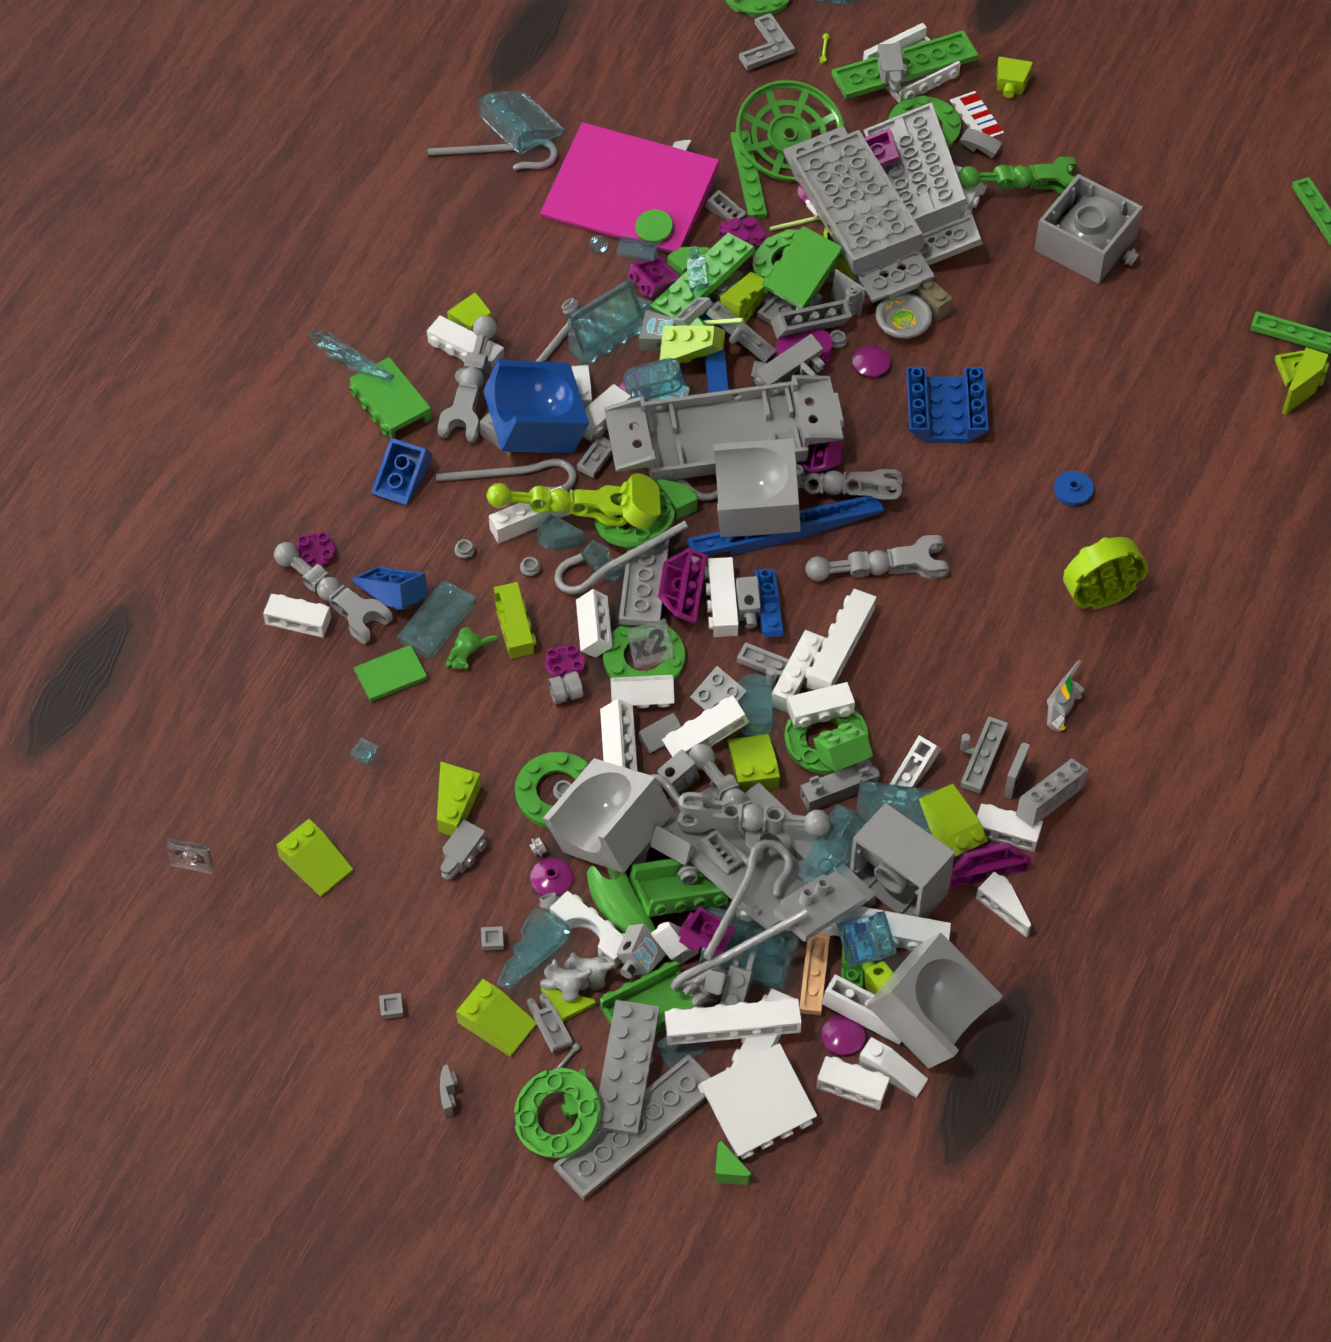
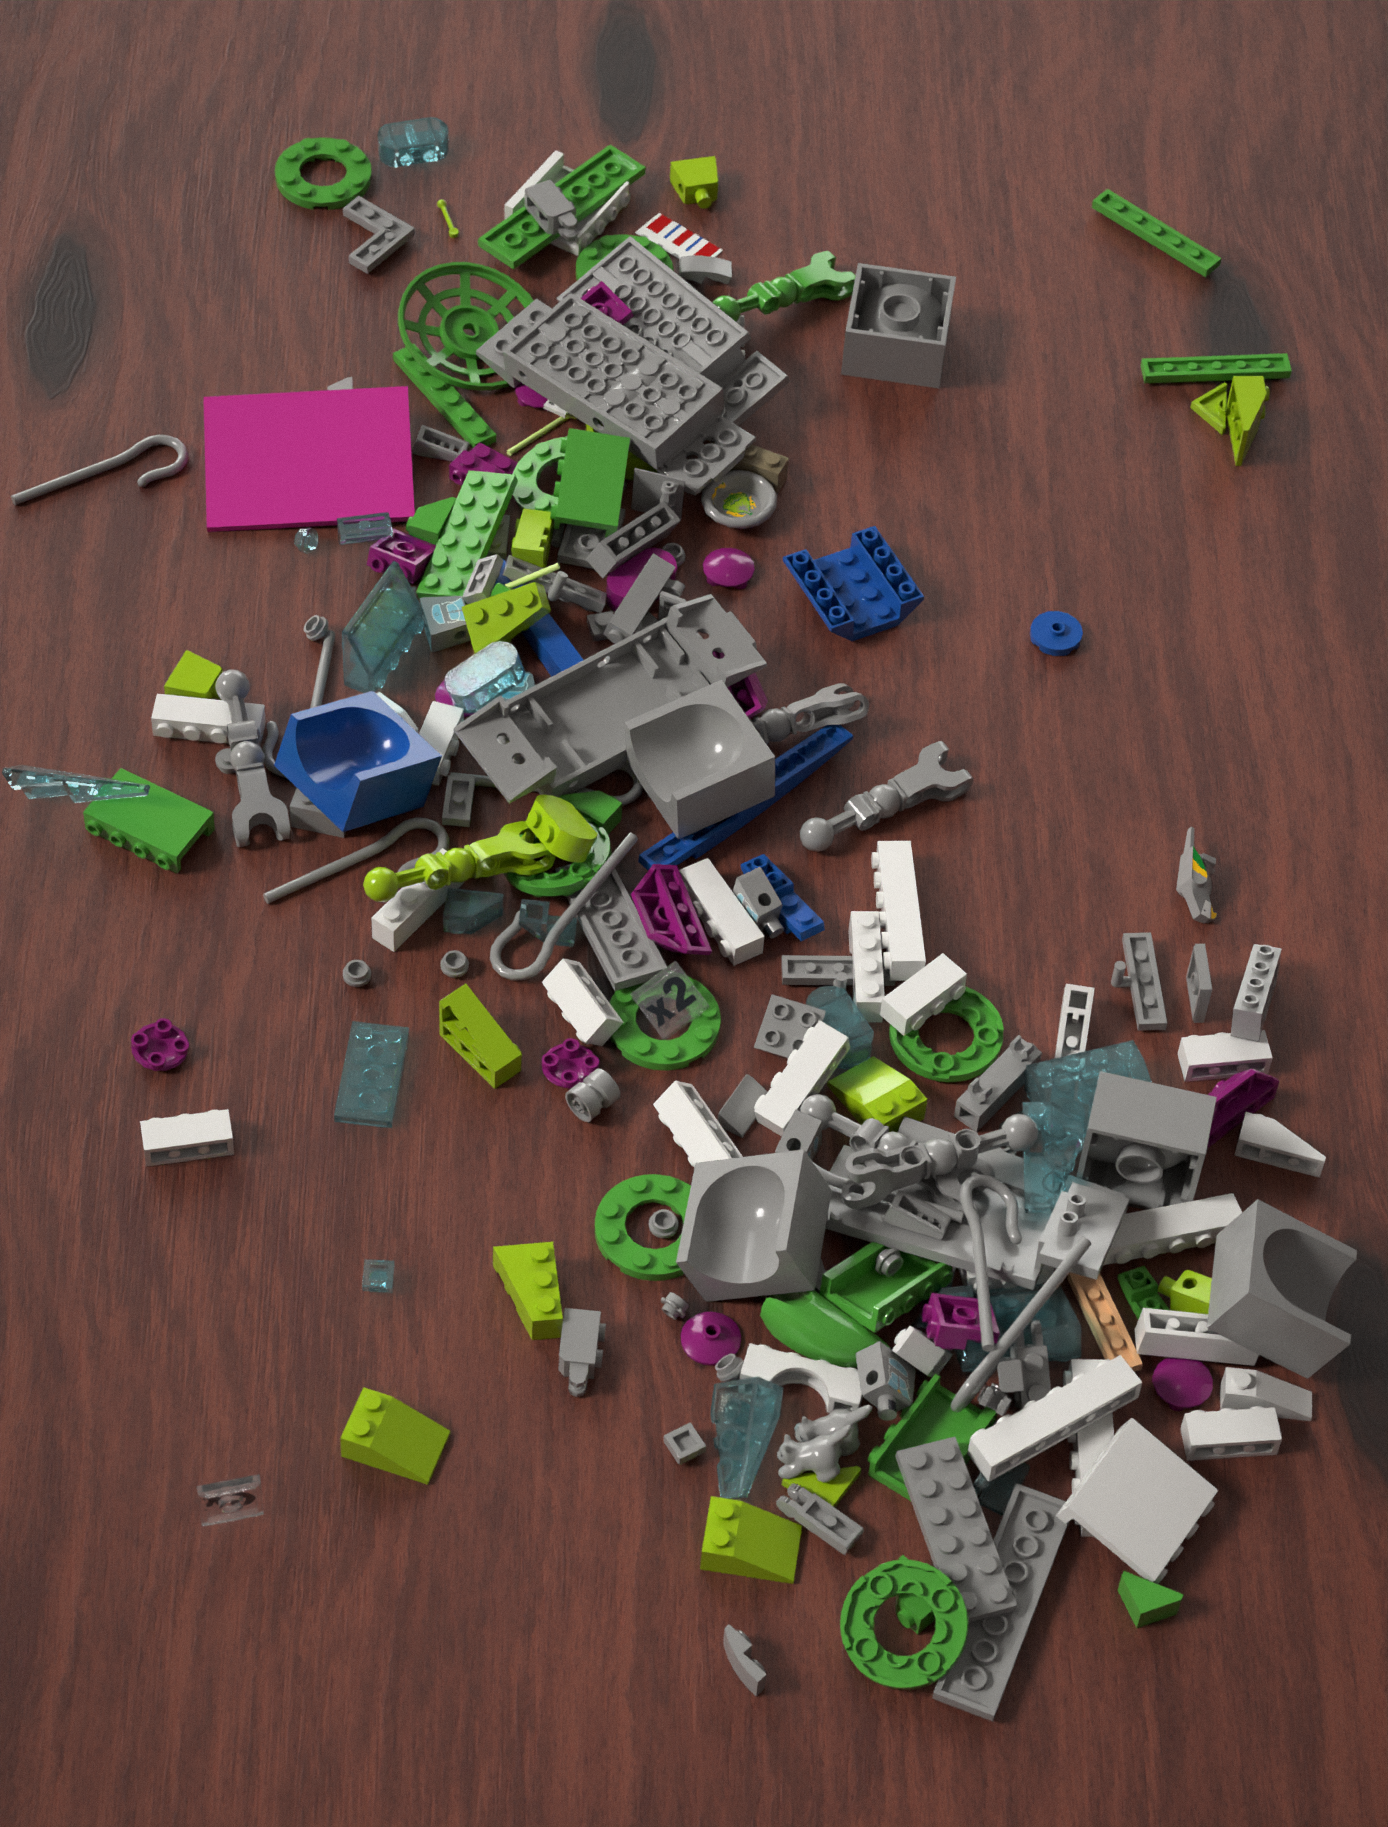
camera: 30 degrees left, 5 degrees down
(342, 599) = (239, 1095): light grey piece -> none
(390, 673) = (352, 1165): bright green tile -> none
(391, 1006) = (606, 1583): light grey plate -> none
(393, 586) = (296, 1052): blue slope -> none
(401, 471) = (218, 906): blue slope -> none
(466, 644) = (432, 1091): bright green animal -> none
(518, 119) = (112, 422): clear light blue slope -> none
(575, 1048) = (868, 1536): light grey hinge -> none
(643, 690) = (693, 1060): white brick -> none
(654, 226) = (368, 493): bright green tile -> none
(672, 845) = (855, 1232): light grey slope -> none
(697, 270) = (460, 527): clear light blue hinge -> none
(842, 746) = (986, 1032): bright green brick -> none
(866, 938) = (1153, 1250): clear light blue slope -> none
(952, 820) = (1162, 1062): lime slope -> none
(1105, 572) = (1166, 711): lime brick -> none
(1130, 257) = (960, 344): light grey plate -> none

